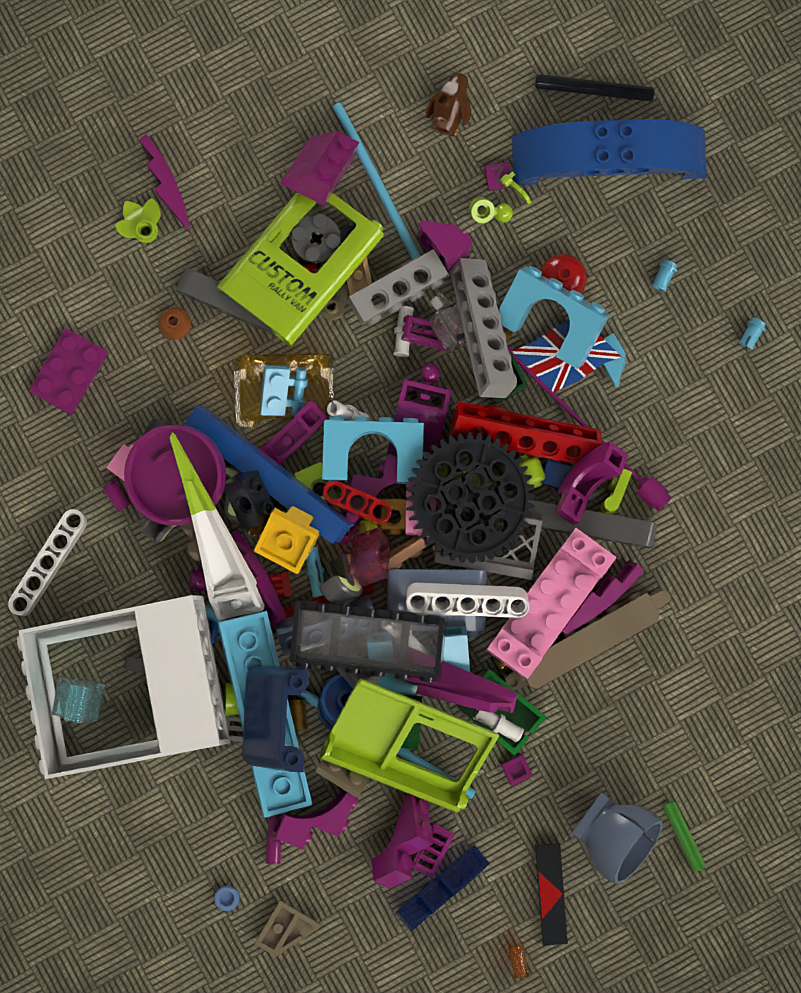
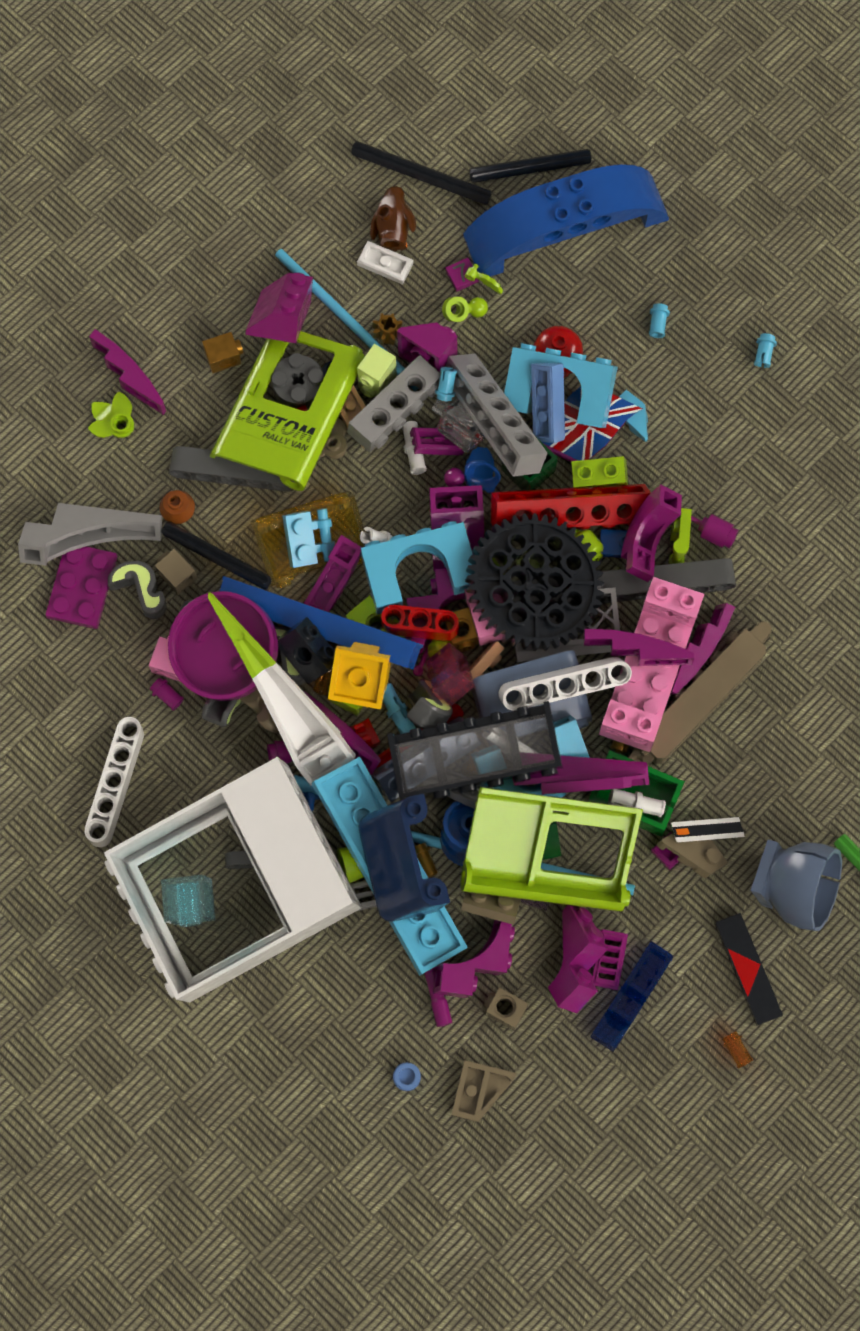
camera: 10 degrees left, 10 degrees down
(82, 319) = (84, 526): none -> light grey arch
(125, 390) = (146, 583): none -> dark grey animal
(155, 384) = (175, 571): none -> dark tan brick
(195, 382) = (216, 555): none -> black axle
(257, 188) = (222, 352): none -> pearl gold brick
(330, 877) = (518, 1008): none -> dark tan brick
(390, 252) = (376, 371): none -> yellowish green brick
(413, 203) = (386, 322): none -> pearl gold gear
(431, 144) = (385, 262): none -> white plate
(447, 288) = (446, 384): none -> medium azure pin
(456, 372) = (480, 469): none -> blue piece
(491, 65) = (421, 172): none -> black axle
(536, 329) = (548, 401): none -> medium blue slope
(538, 776) = (700, 855): none -> dark tan wing
(551, 591) = (649, 649): none -> magenta slope
(554, 762) = (707, 829): none -> sticker
(562, 409) = (600, 472): none -> lime brick

